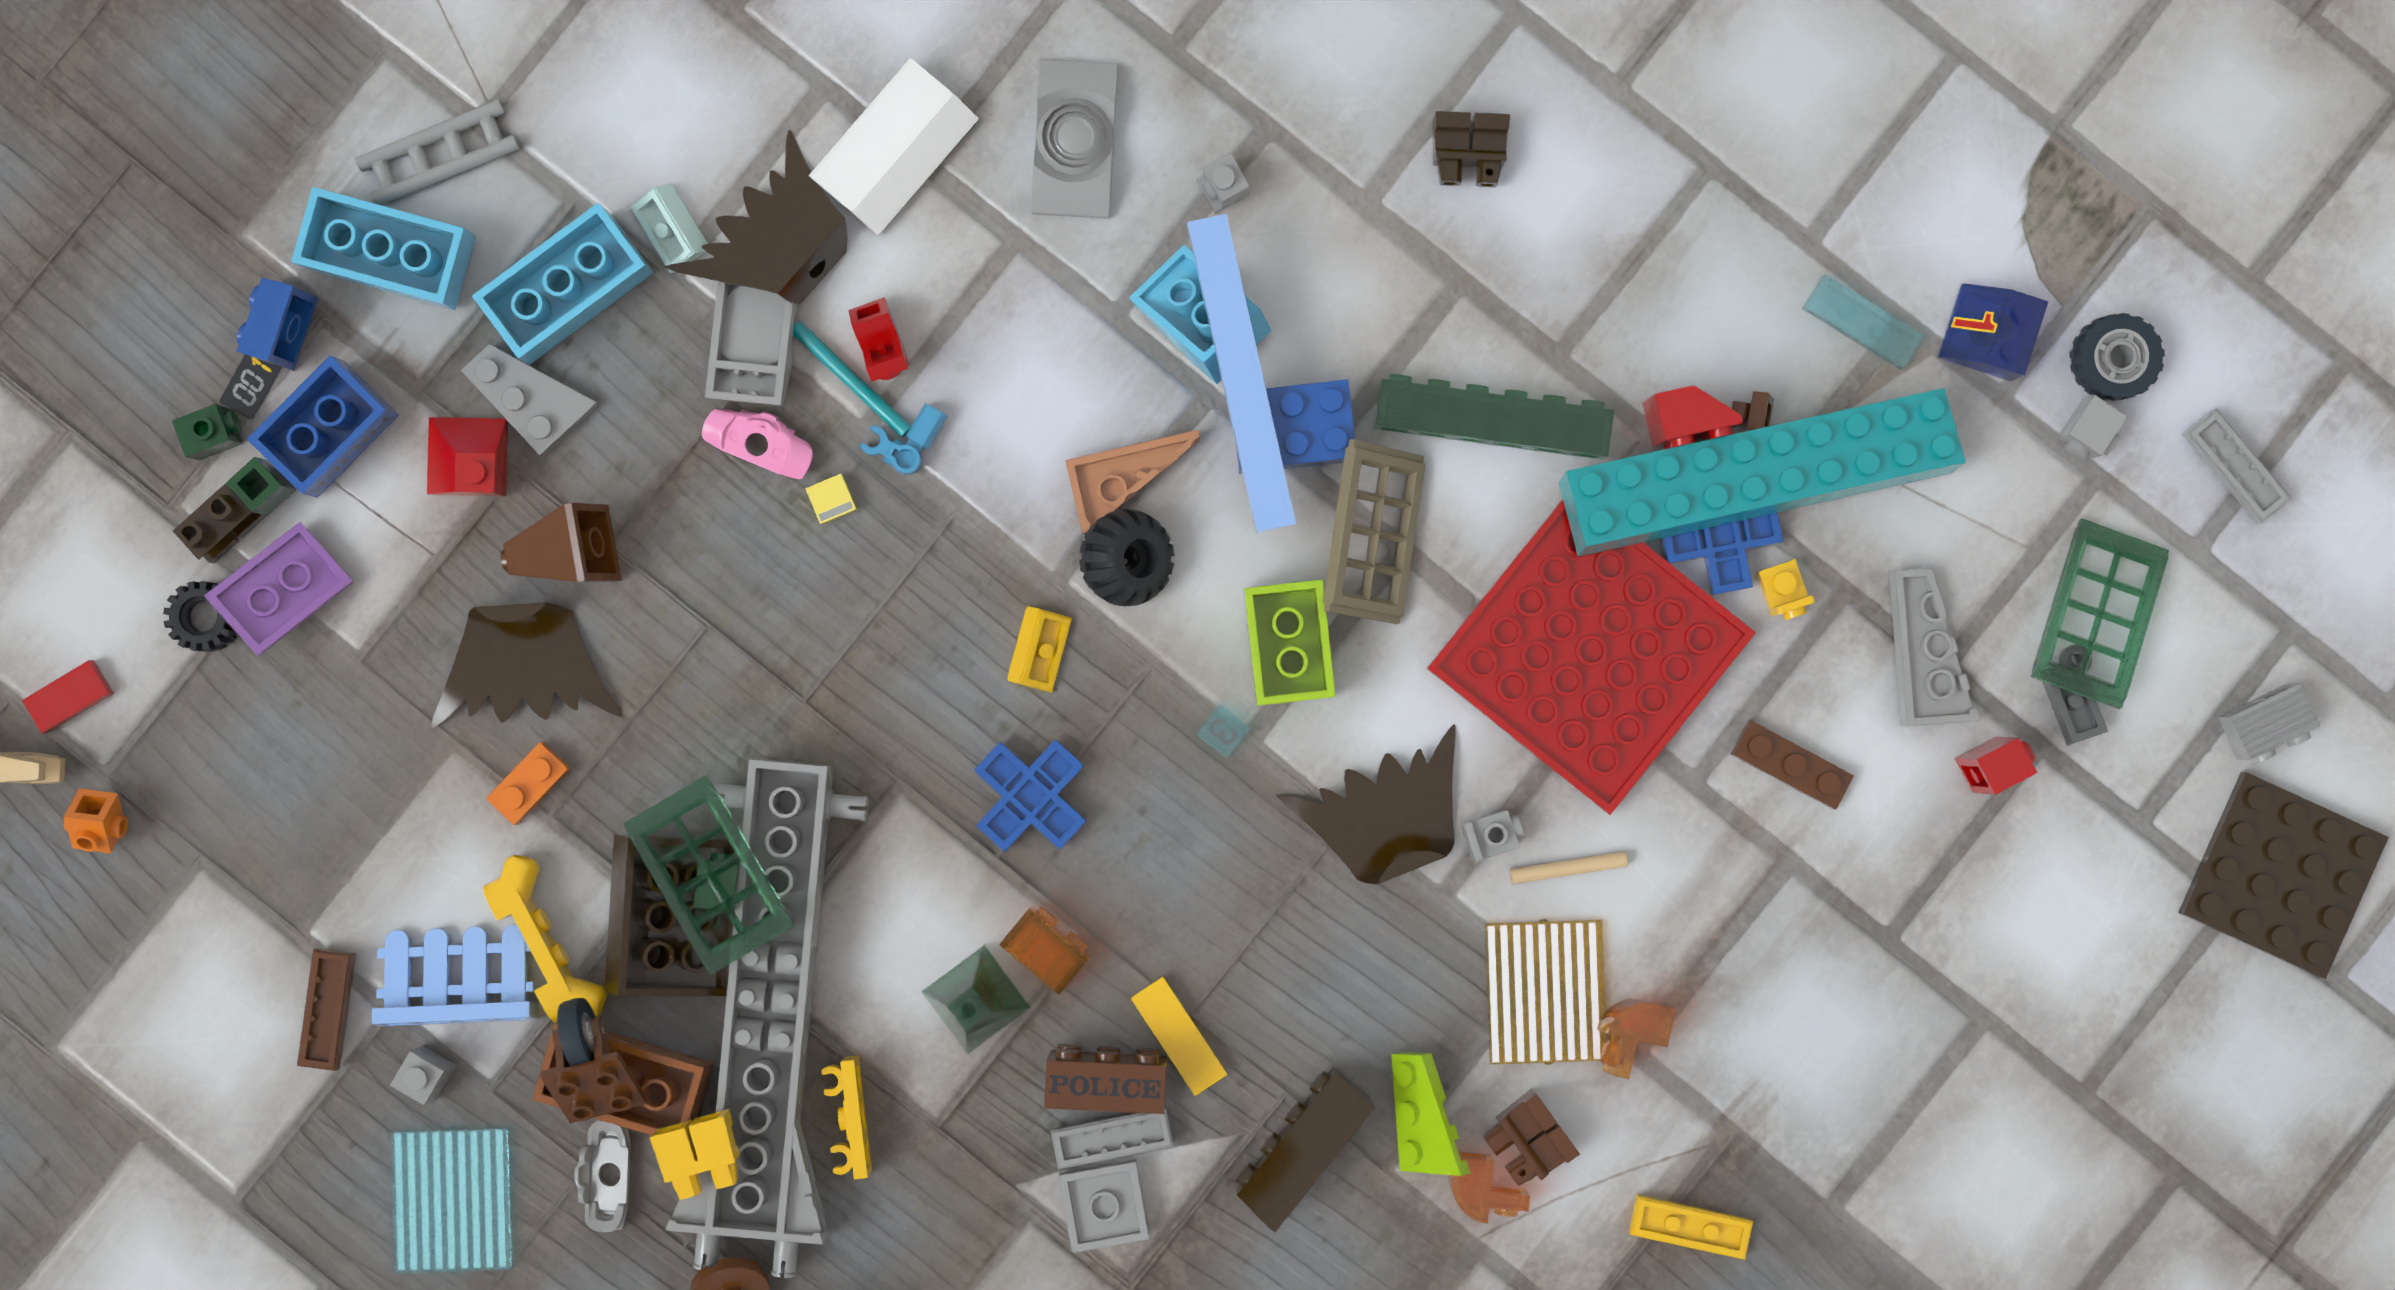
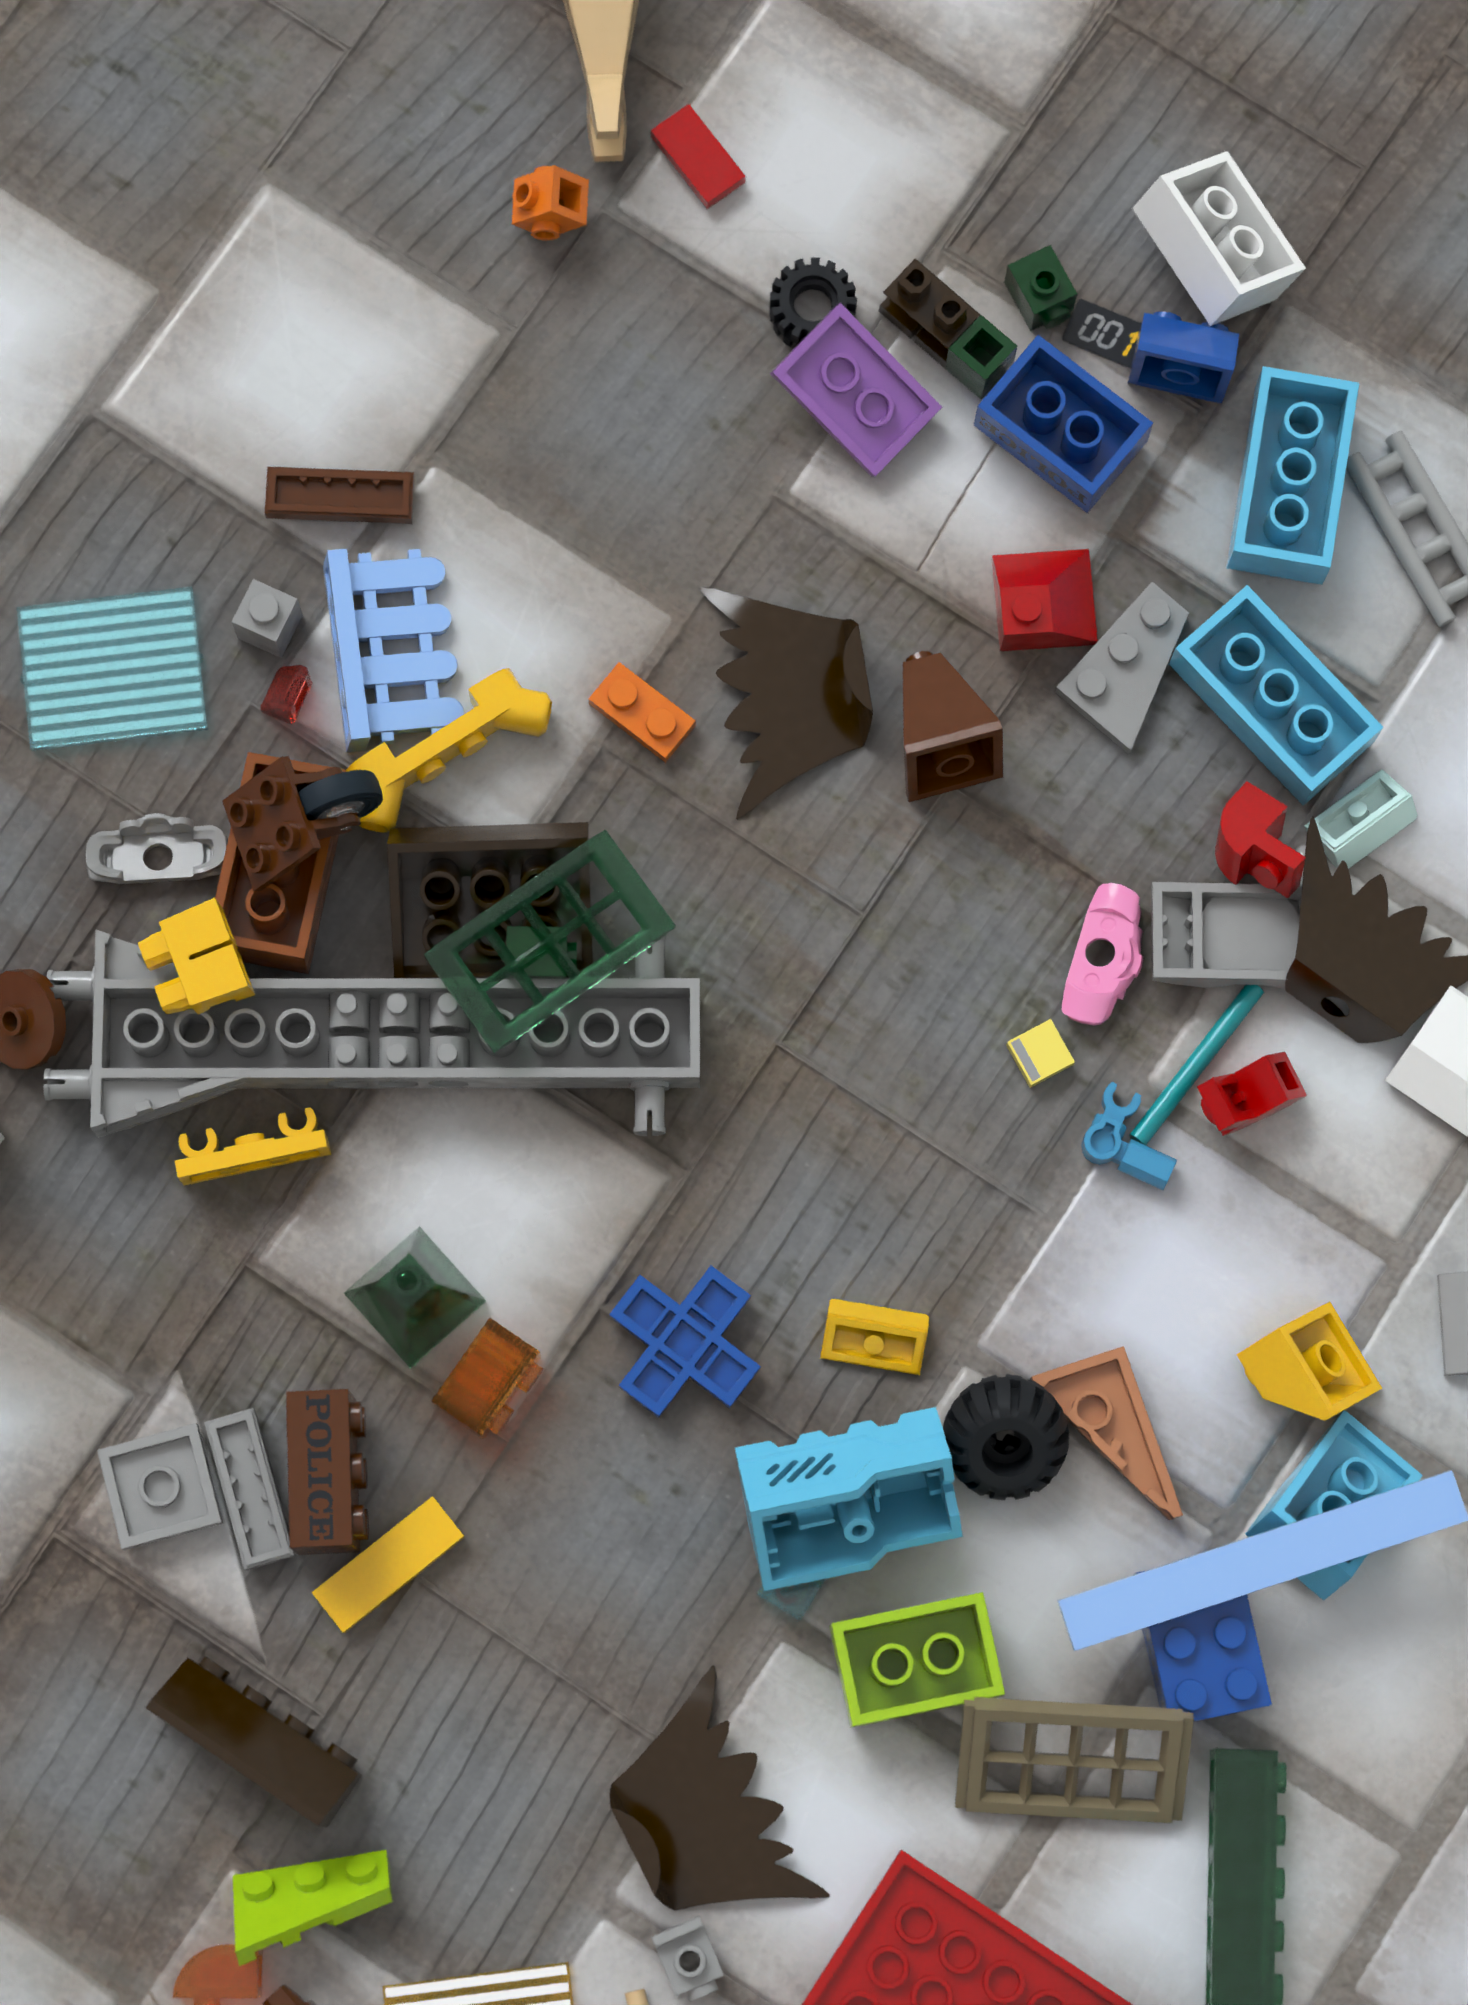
camera: 85 degrees right, 10 degrees down
(178, 284) = (1218, 238): none -> white brick
(486, 1062) = (287, 693): none -> clear red slope
(680, 318) = (1251, 845): none -> red brick
(1094, 319) = (1310, 1365): none -> yellow slope
(1164, 683) = (847, 1498): none -> medium azure piece

